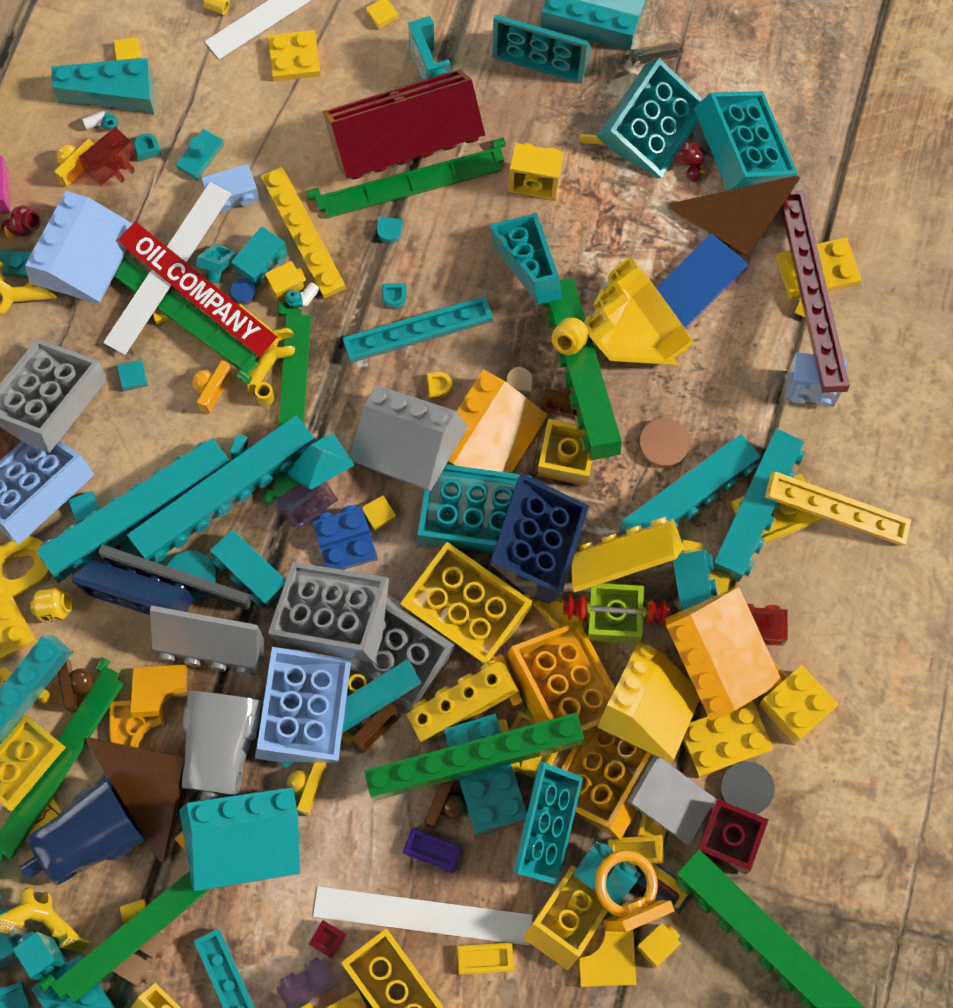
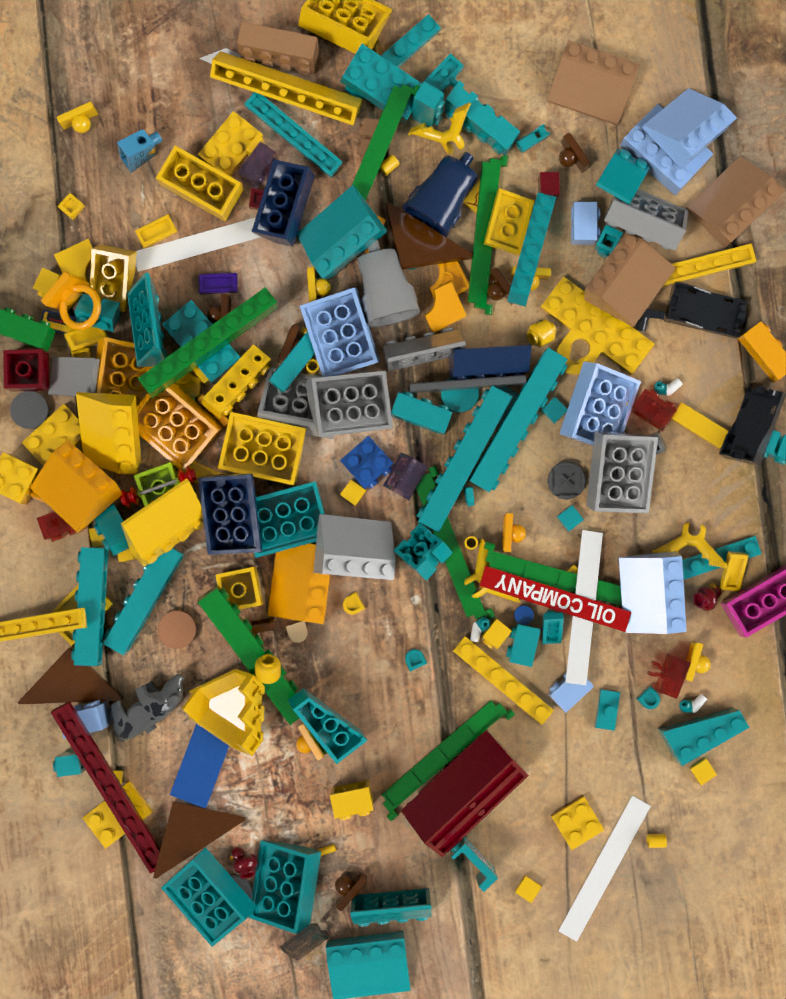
camera: 155 degrees right, 15 degrees up
(114, 420) = (566, 480): none -> dark grey tile
(298, 916) = (283, 202): none -> dark blue slope
(320, 462) = (404, 503): teal slope -> none
(325, 401) = (423, 551): none -> teal brick
(389, 229) = (441, 709): teal tile -> none
(418, 329) = (385, 639): teal plate -> none
(562, 254) = (308, 743): none -> light orange tile
(581, 86) = (348, 889): none -> reddish brown tile
(736, 361) = (149, 710): none -> dark grey animal
(826, 435) = (70, 683): none -> reddish brown tile
(853, 337) = (67, 764): none -> teal piece

